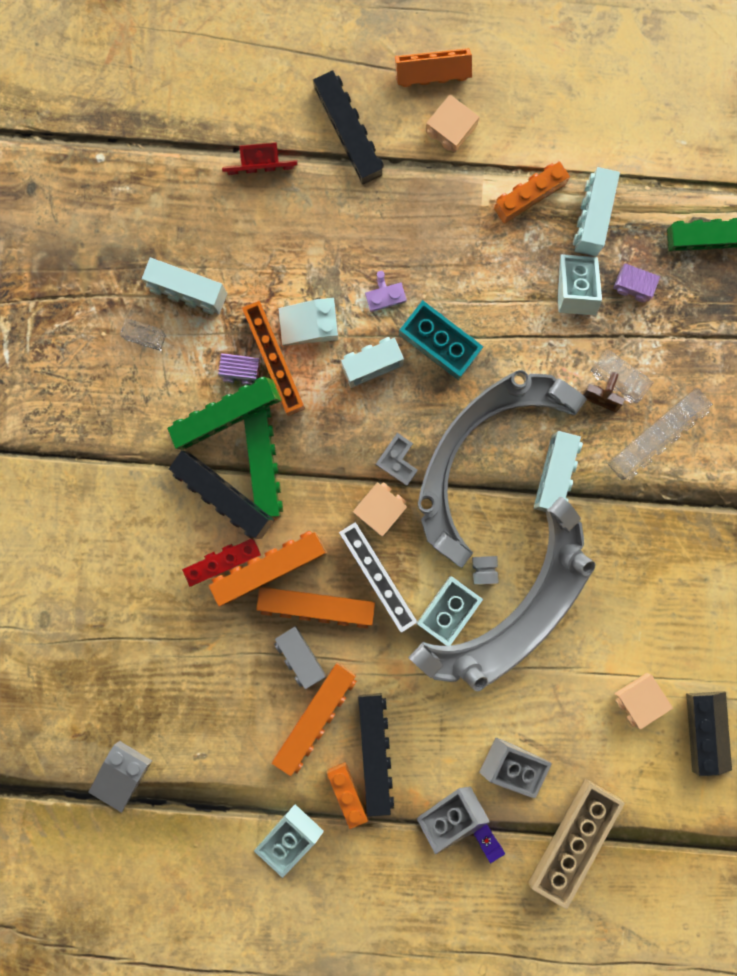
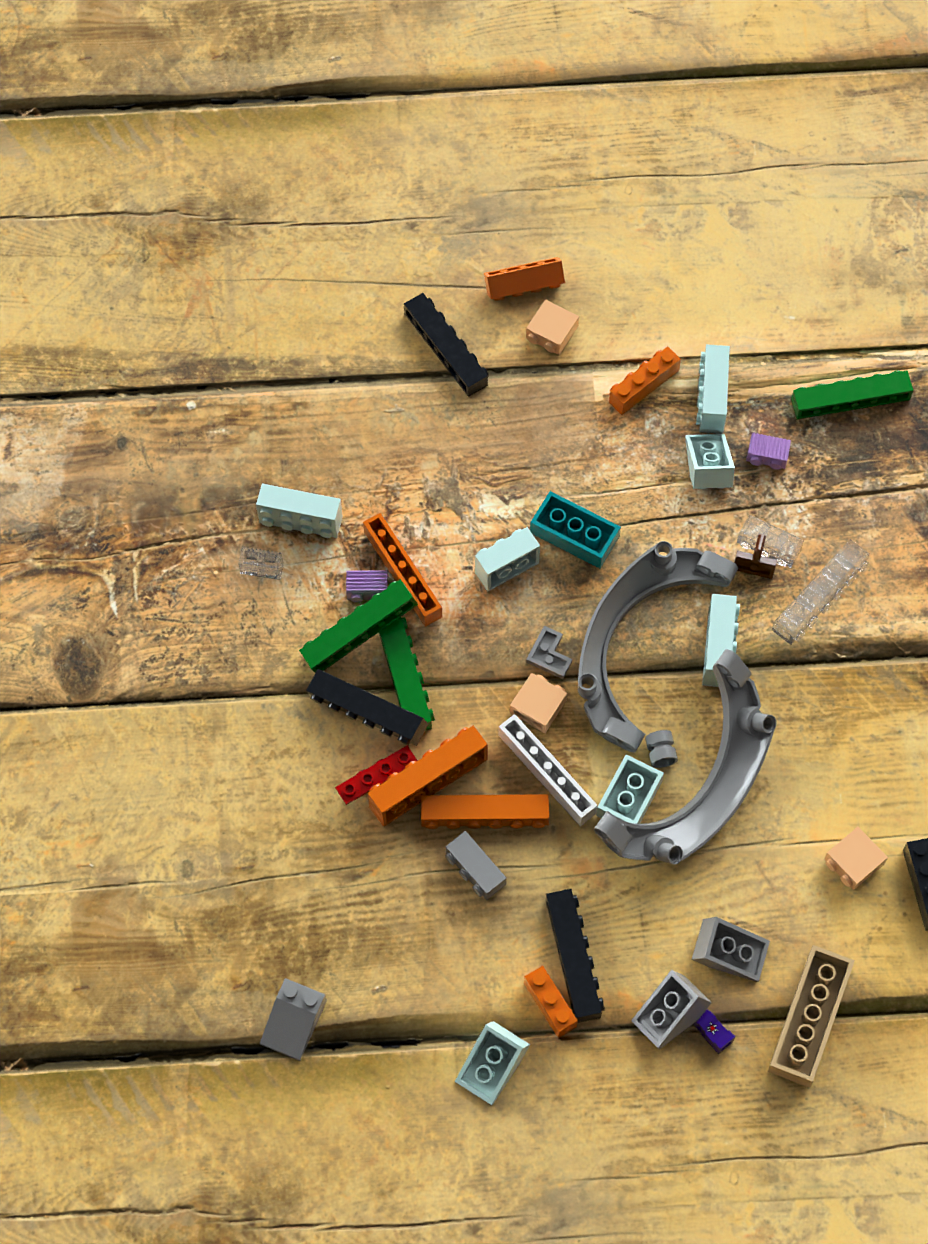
camera: 10 degrees left, 20 degrees down
(259, 157) = (358, 382): red bracket -> none
(308, 322) = (434, 531): light aqua slope -> none
(313, 719) = (500, 928): orange brick -> none
(386, 295) = (509, 497): lavender plate -> none

